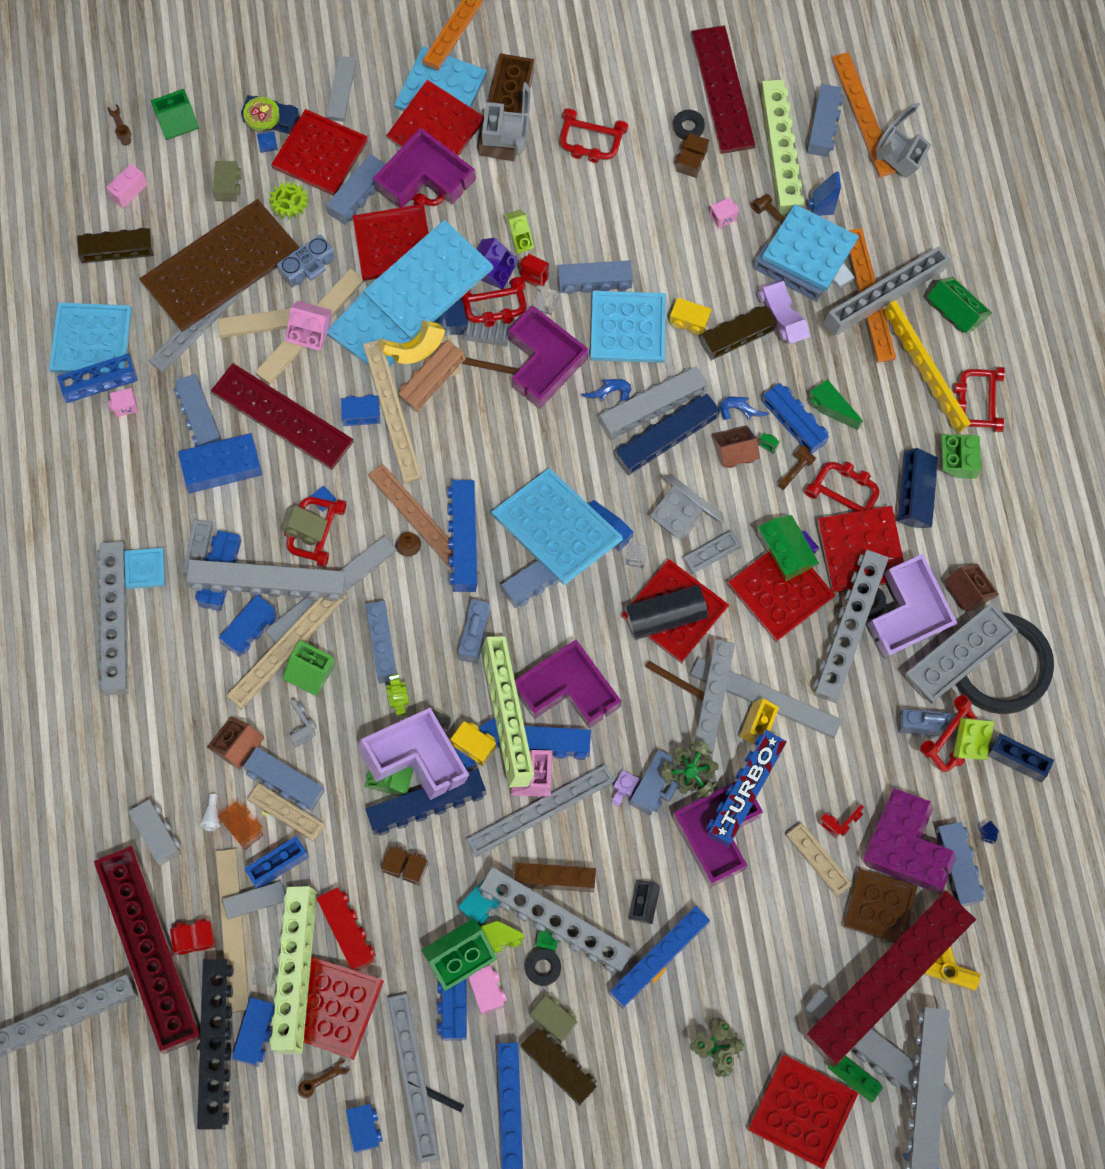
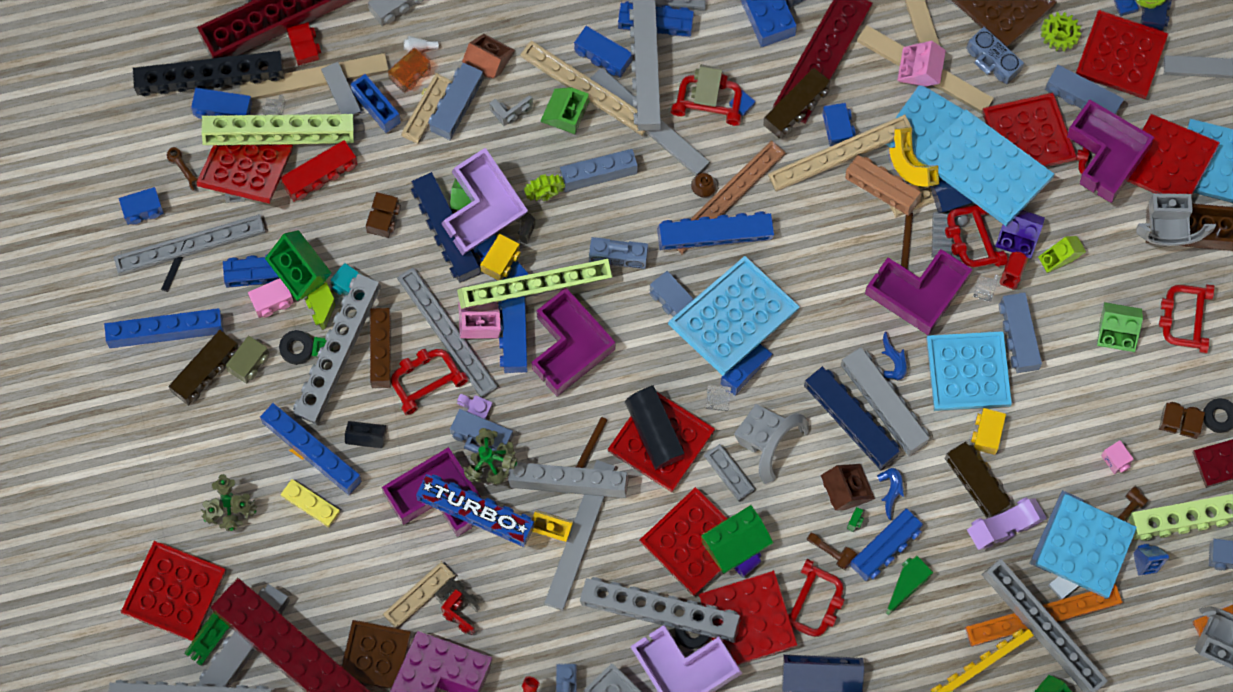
camera: 85 degrees right, 0 degrees up
(336, 442) = (797, 103): none -> dark brown brick
(567, 836) = (424, 357): none -> red bar
(596, 192) = (1119, 327): none -> bright green slope
(715, 963) = (310, 503): none -> light yellow plate
(818, 829) = (449, 587): none -> clear smoke bracket

